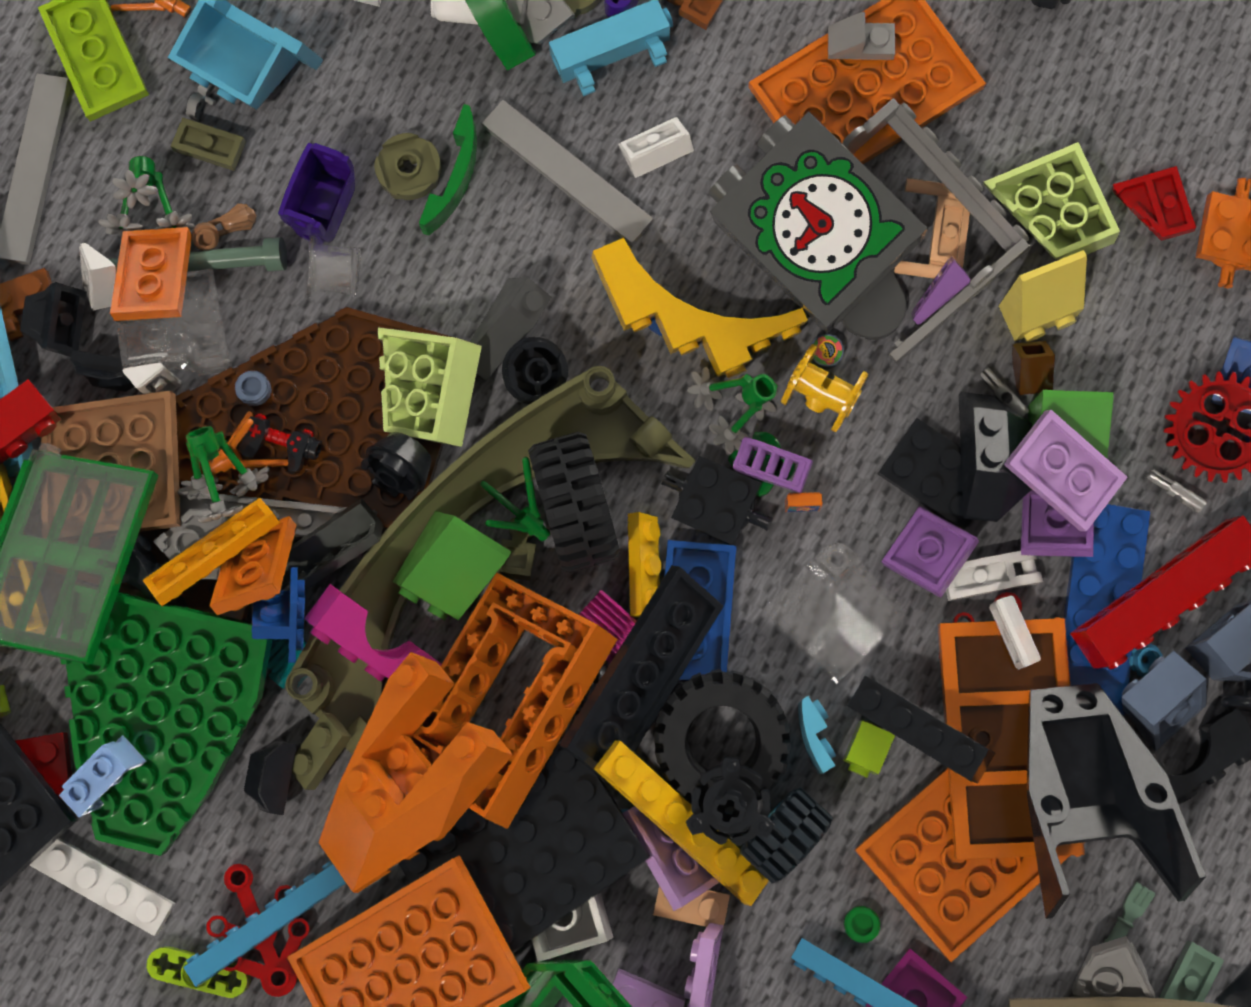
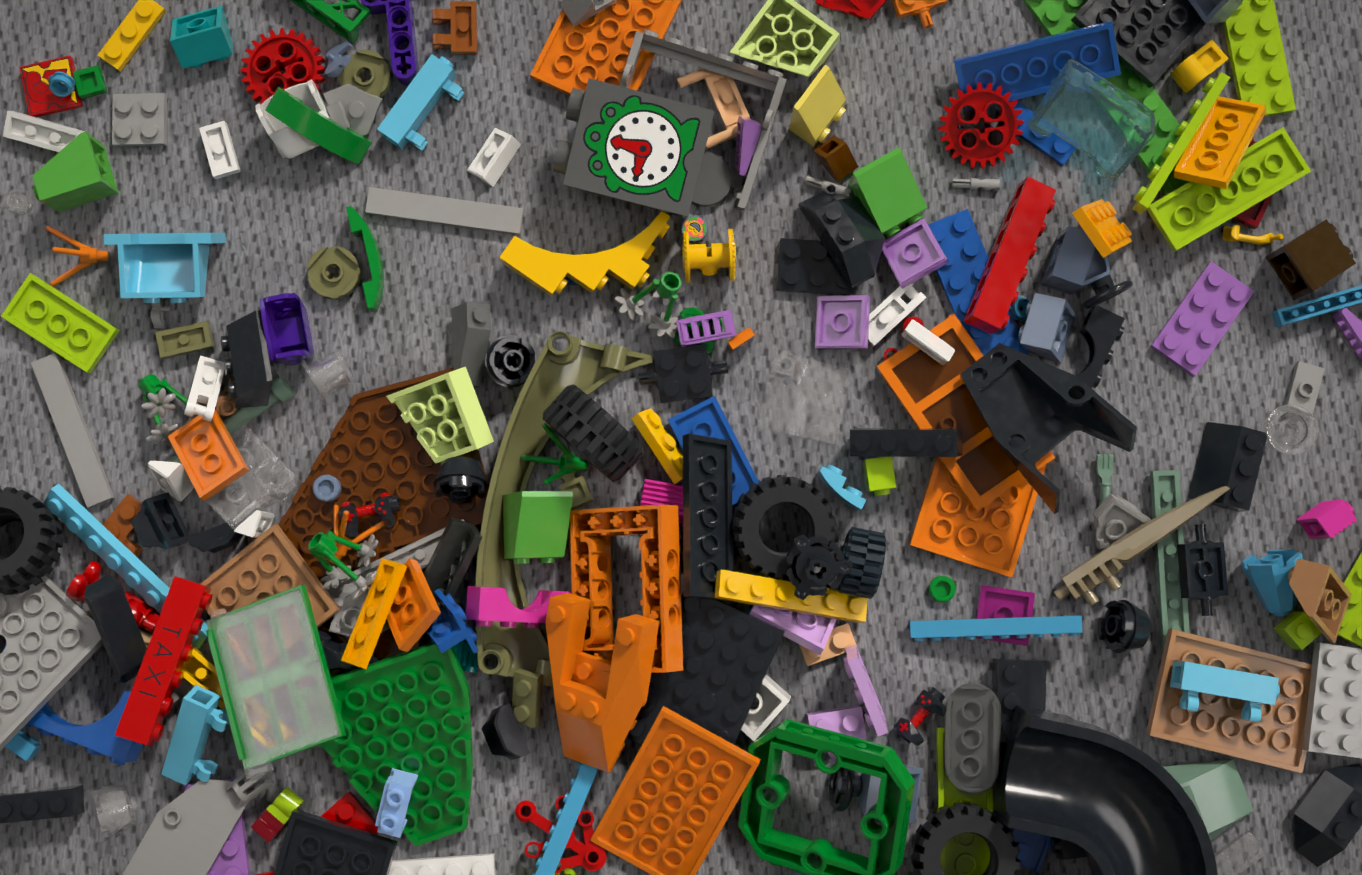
camera: 35 degrees left, 5 degrees up
(193, 204) = (205, 388): none -> white plate
(253, 202) = (247, 361): none -> black slope
(1065, 470) = (898, 217): lavender plate -> none

